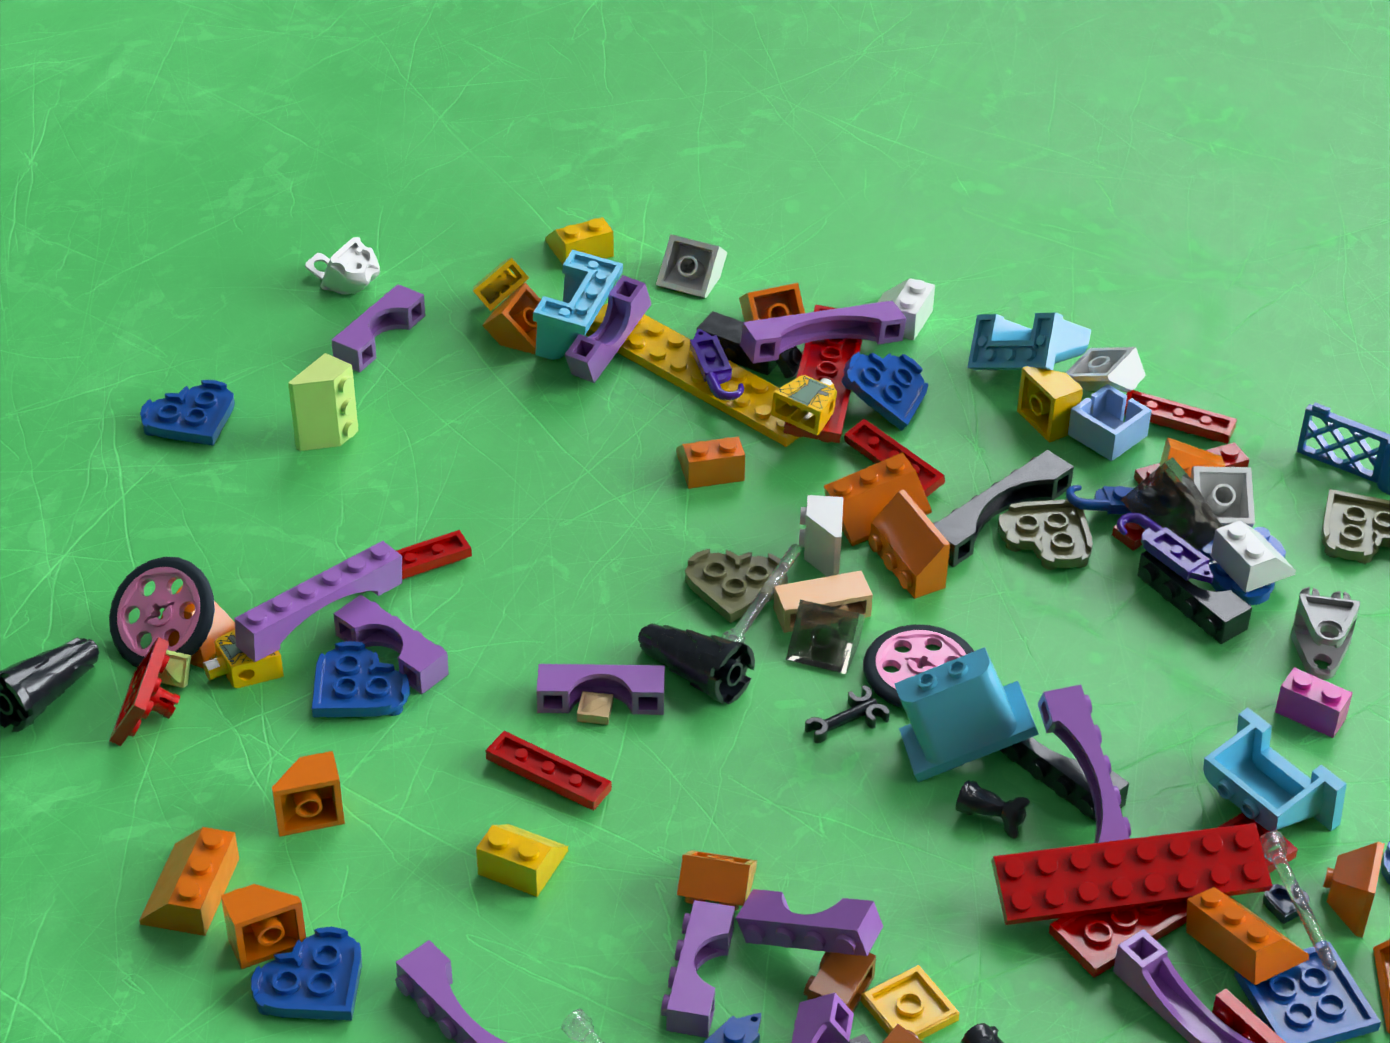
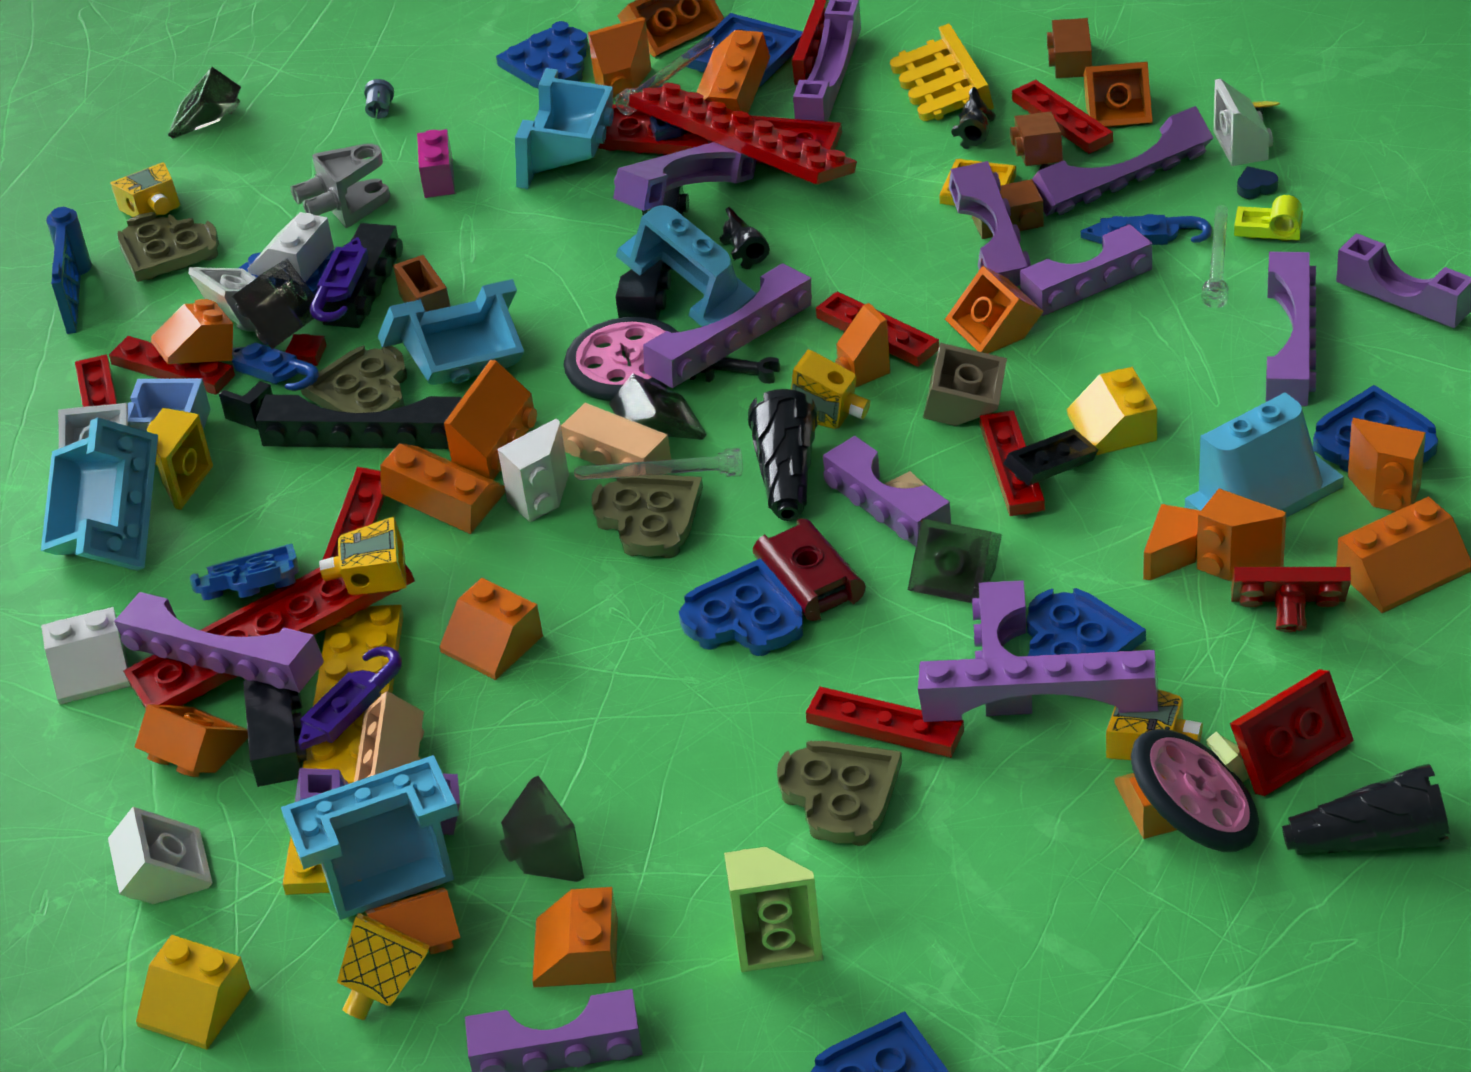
camera: 125 degrees left, 0 degrees up
(237, 784) = (1290, 590): none -> red plate
(340, 879) = (1265, 459): none -> medium azure windscreen
(365, 785) = (1171, 541): none -> orange slope
(391, 514) = (840, 787): none -> olive plate
(423, 368) = (577, 940): none -> orange slope
(491, 677) = (953, 560): none -> clear smoke slope
(503, 383) = (541, 835): none -> clear smoke slope
(515, 776) = (1050, 456): none -> black plate
(578, 609) = (810, 569): none -> dark red piece
(585, 566) = (743, 607): none -> blue plate
(649, 786) = (963, 385): none -> dark tan slope
(652, 365) = (388, 736): none -> light nougat brick
(734, 715) = (830, 388): none -> yellow torso
(756, 771) = (865, 346): none -> orange slope
(786, 806) = (903, 339): none -> red plate
(889, 777) = (683, 354): none -> medium lavender arch
(1036, 578) = (459, 338): none -> medium azure windscreen
(1089, 471) = (245, 408): none -> black panel
(1120, 598) = (419, 281): none -> dark orange piece

